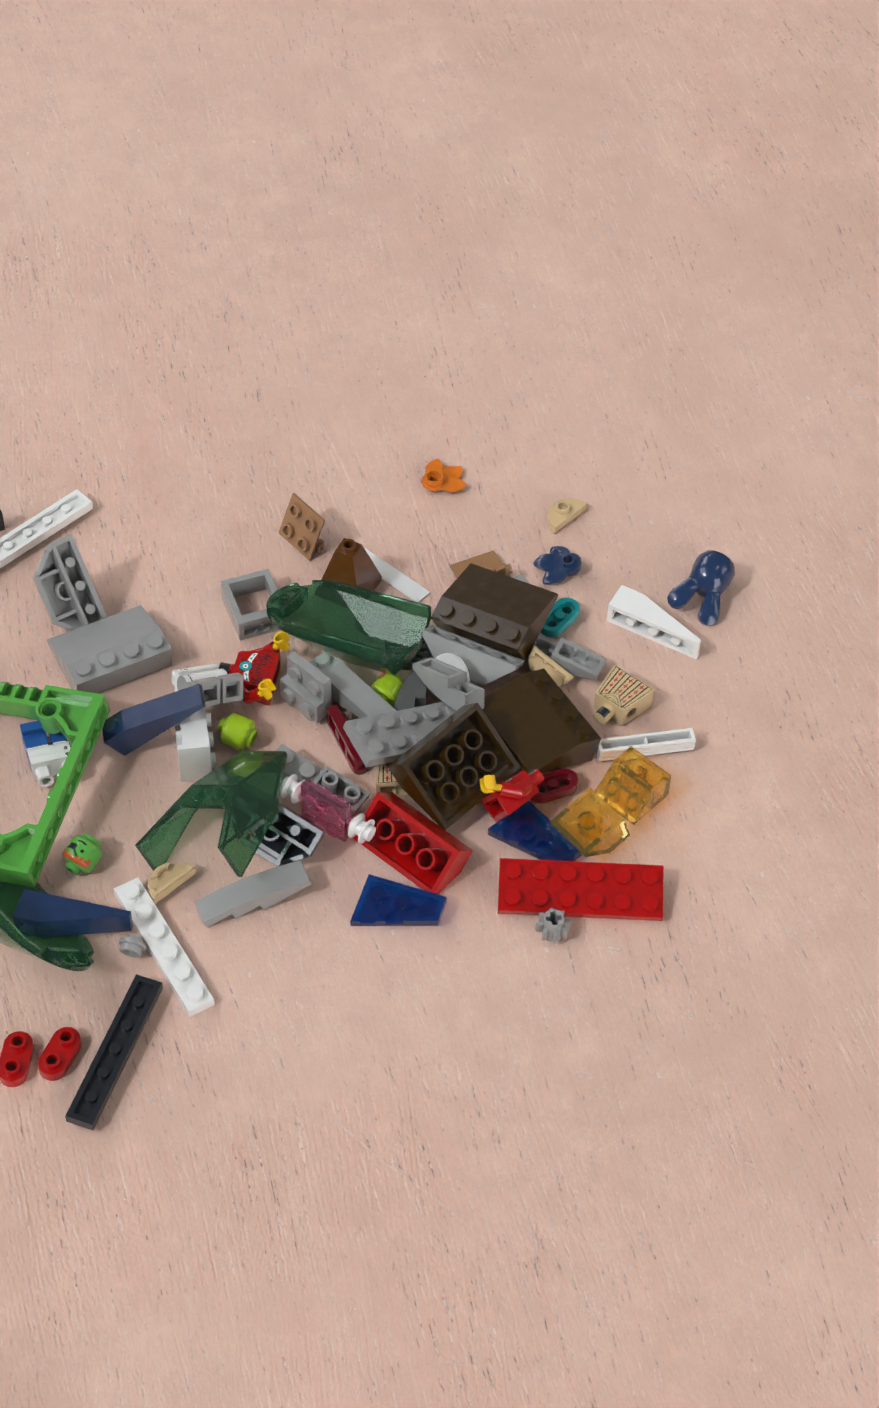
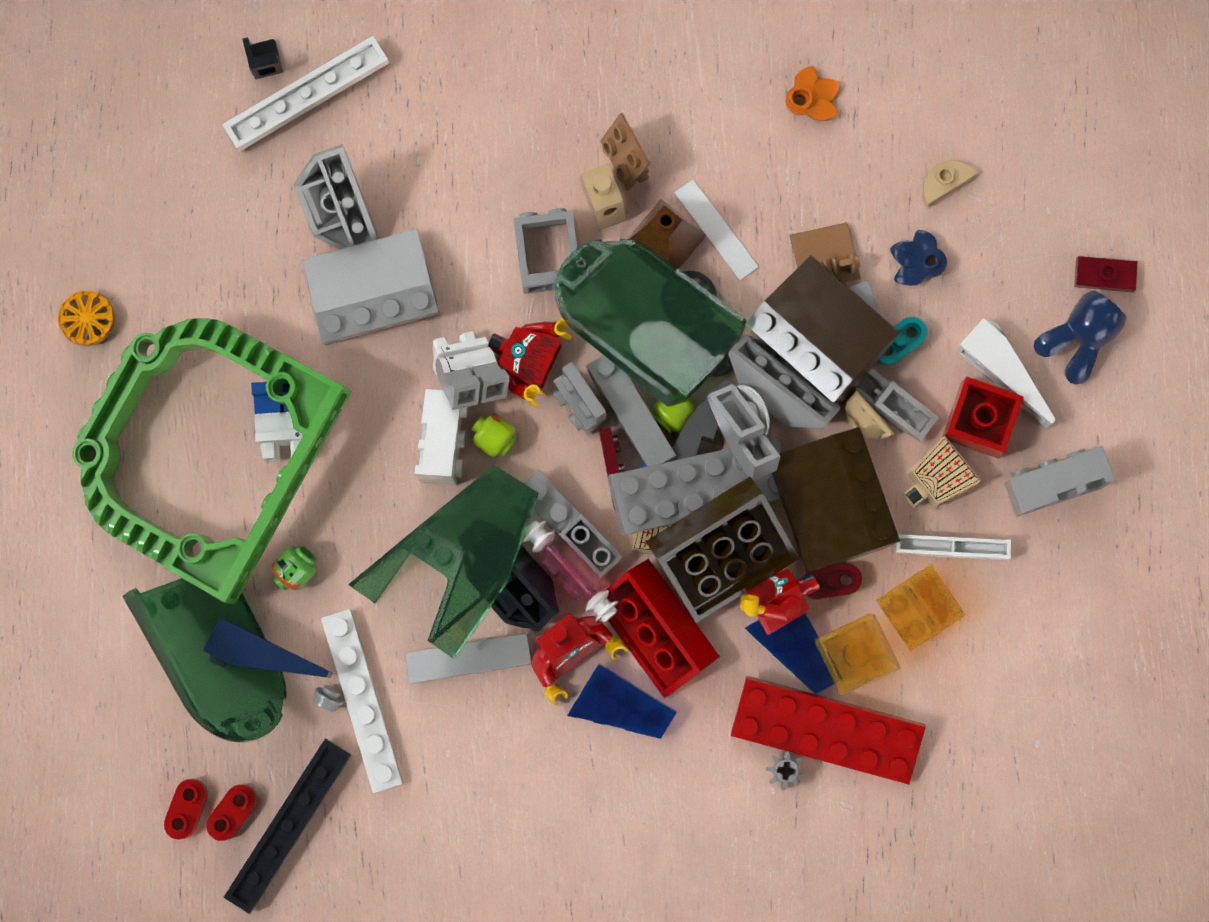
camera: 20 degrees right, 30 degrees up
(146, 720) = (398, 412): dark blue slope -> none
(168, 878) = (380, 617): tan plate -> none
(288, 551) = (602, 195): none -> tan torso
(338, 864) = (568, 645): none -> red torso
(643, 649) = (982, 417): none -> red brick
(693, 549) = (1105, 274): none -> dark red plate
(719, 681) = (1059, 480): none -> light grey wedge

